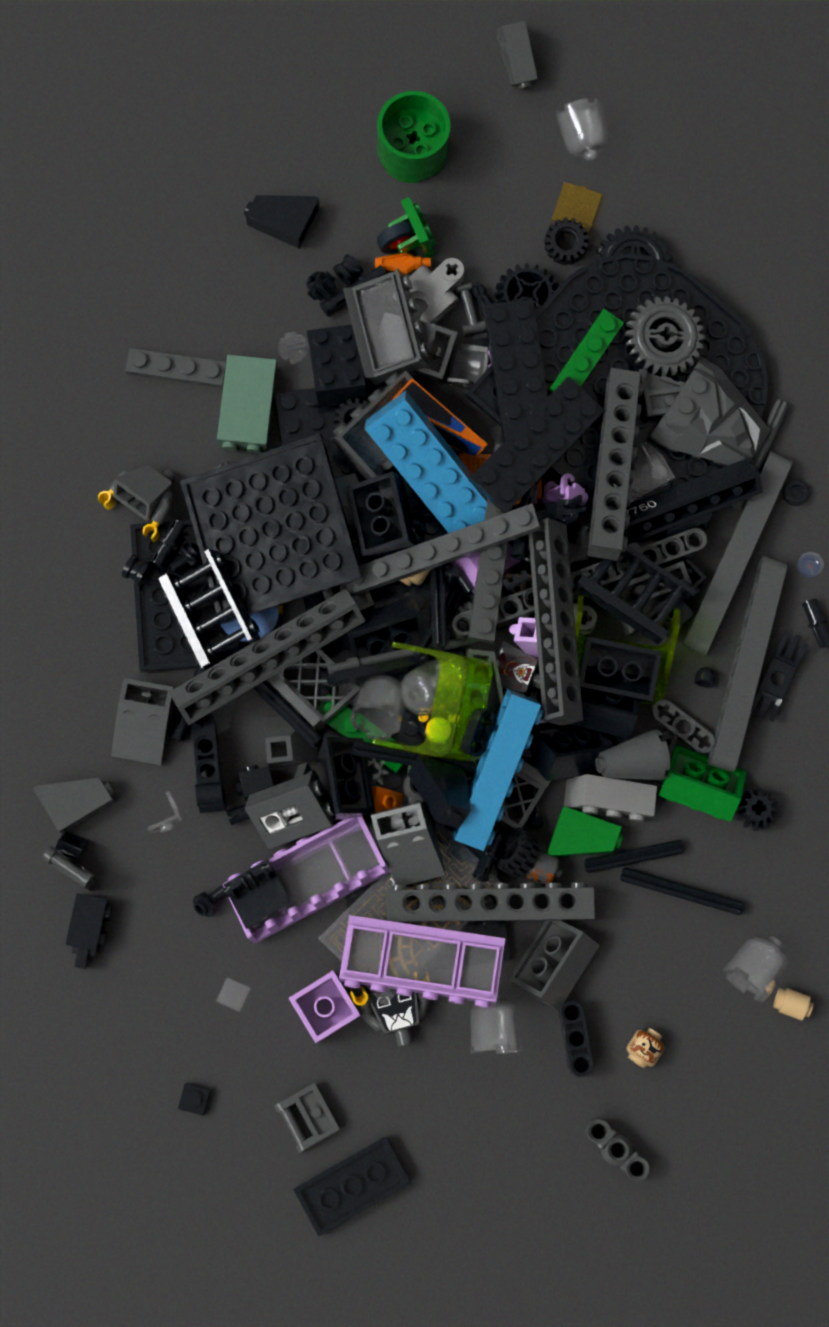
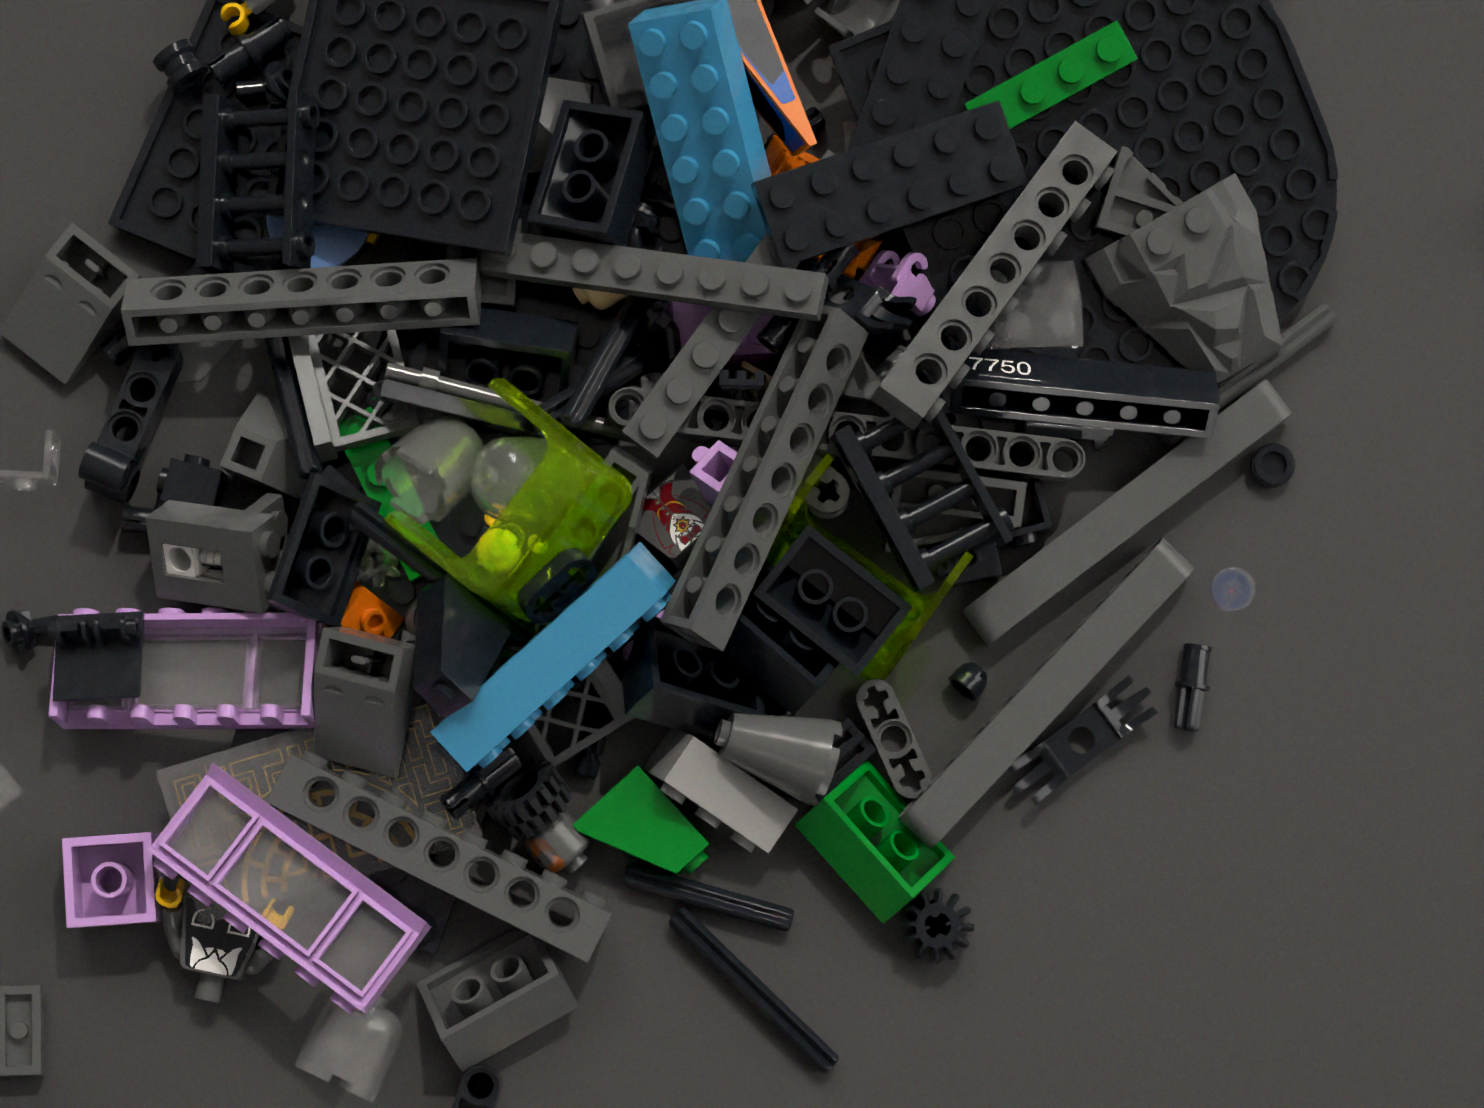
camera: 30 degrees right, 5 degrees up
(642, 335) = (1155, 89): dark grey gear -> none

